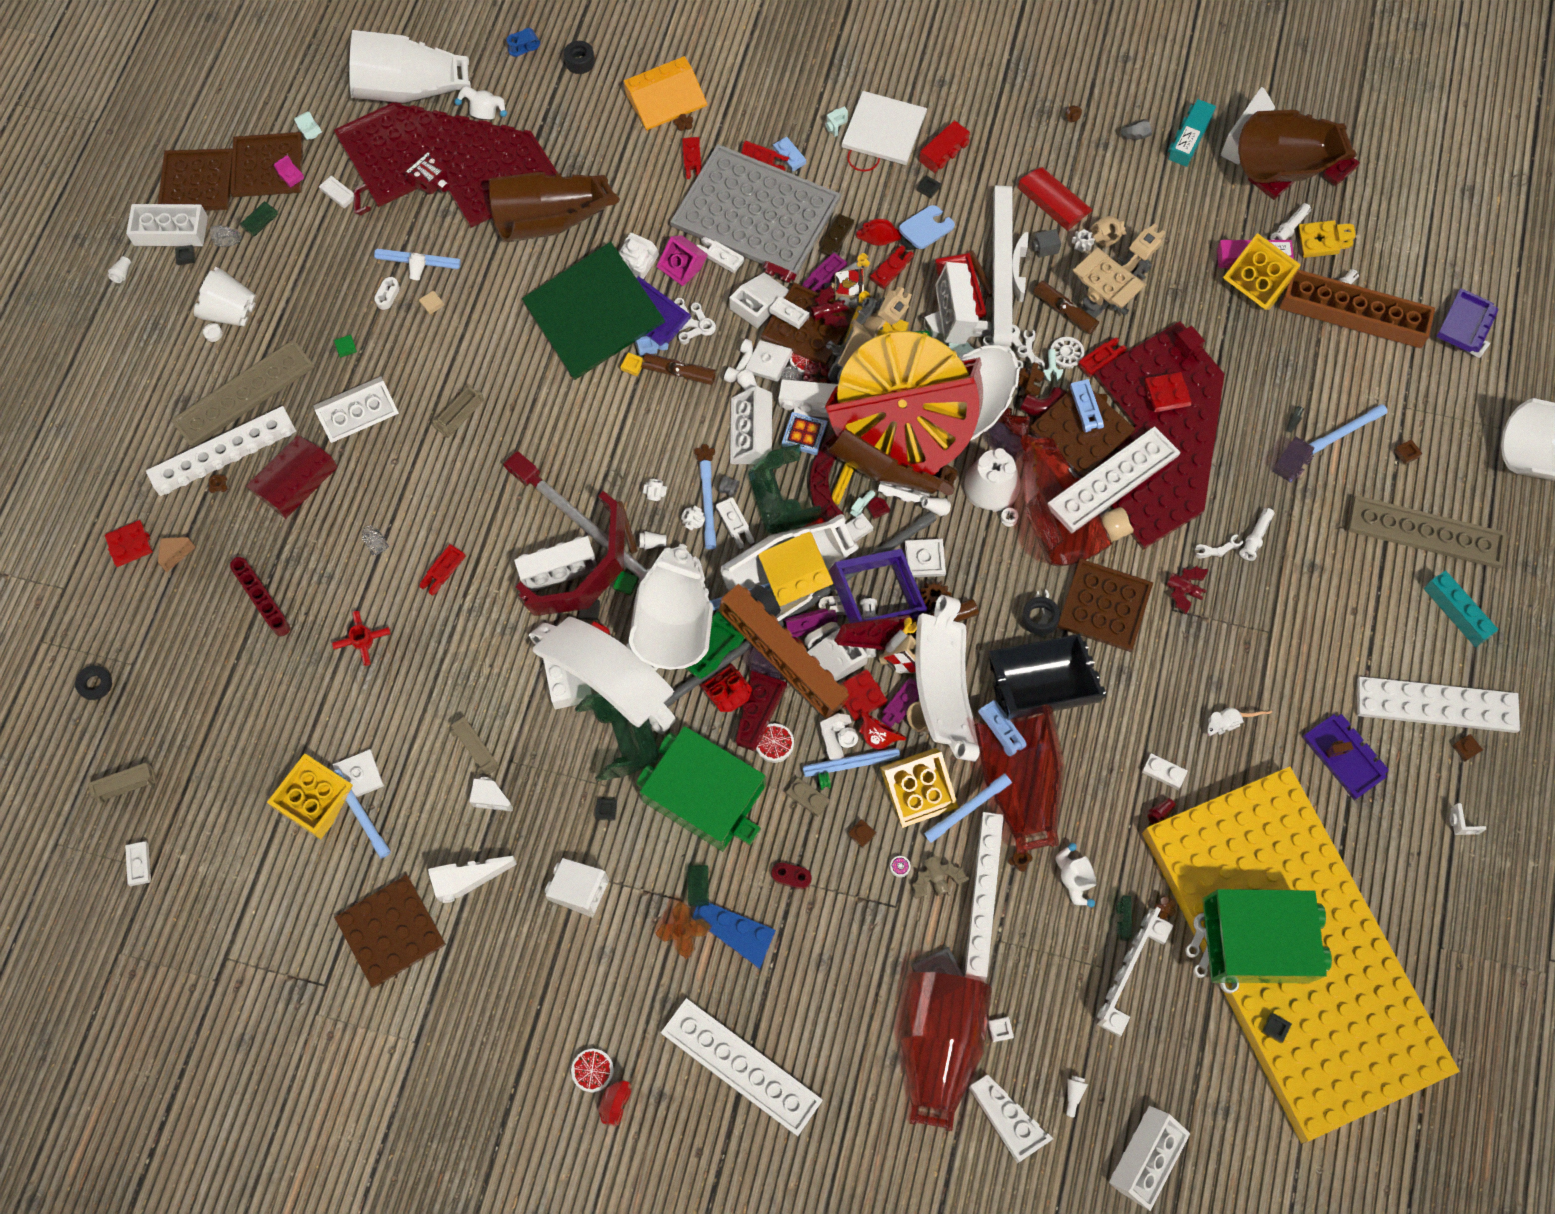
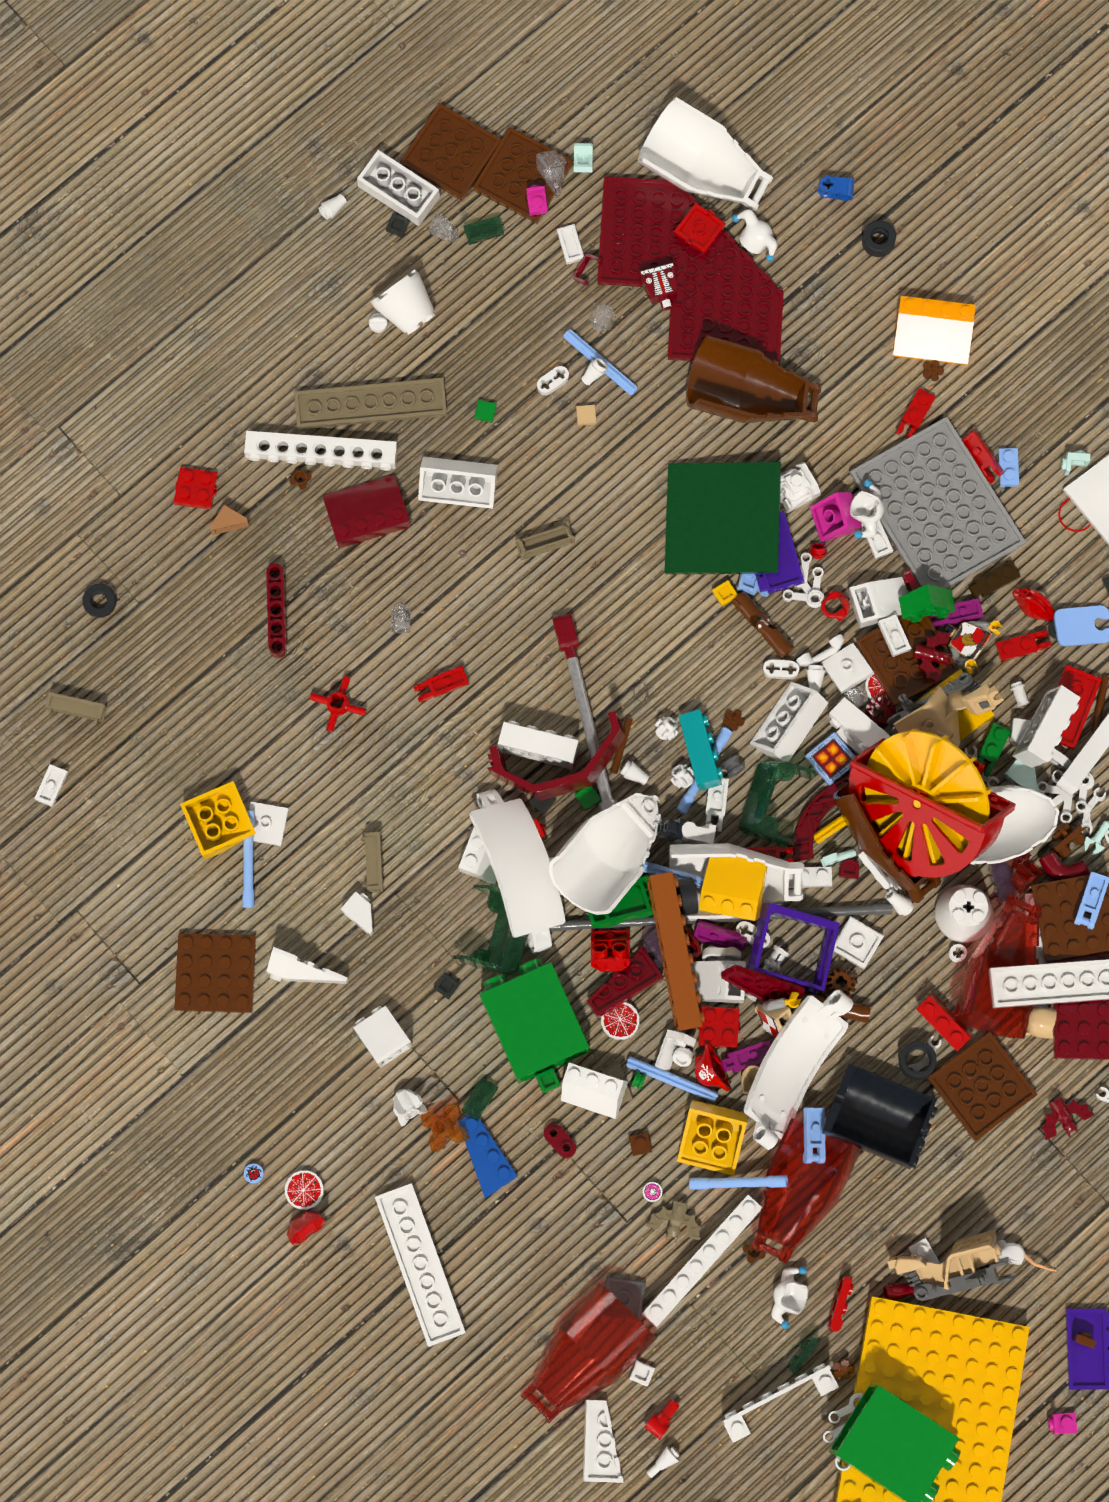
camera: 35 degrees right, 10 degrees up
(285, 143) = (552, 169): none -> clear slope
(397, 225) = (602, 317): none -> clear head
(434, 121) = (699, 228): none -> red plate
(536, 1086) = (253, 1173): none -> tile
(638, 932) = (407, 1105): none -> white brick
(685, 291) = (818, 550): none -> red plate
(694, 488) = (700, 750): none -> teal brick
(703, 235) = (867, 509): none -> white piece
(716, 393) = (780, 664): none -> white beam
(724, 552) = (686, 832): none -> hips
(729, 314) = (841, 614): none -> red piece
(791, 812) = (593, 1090): none -> white slope
(795, 272) = (926, 602): none -> green brick
(917, 302) = (1019, 693): none -> white pin
(1040, 572) = (943, 1021): none -> red brick
(1047, 1064) = (660, 1422): none -> red pin
(1123, 854) = (840, 1306): none -> red hinge
(1204, 749) = (962, 1270): none -> tan piece
(1373, 830) = (1062, 1423): none -> dark pink bracket

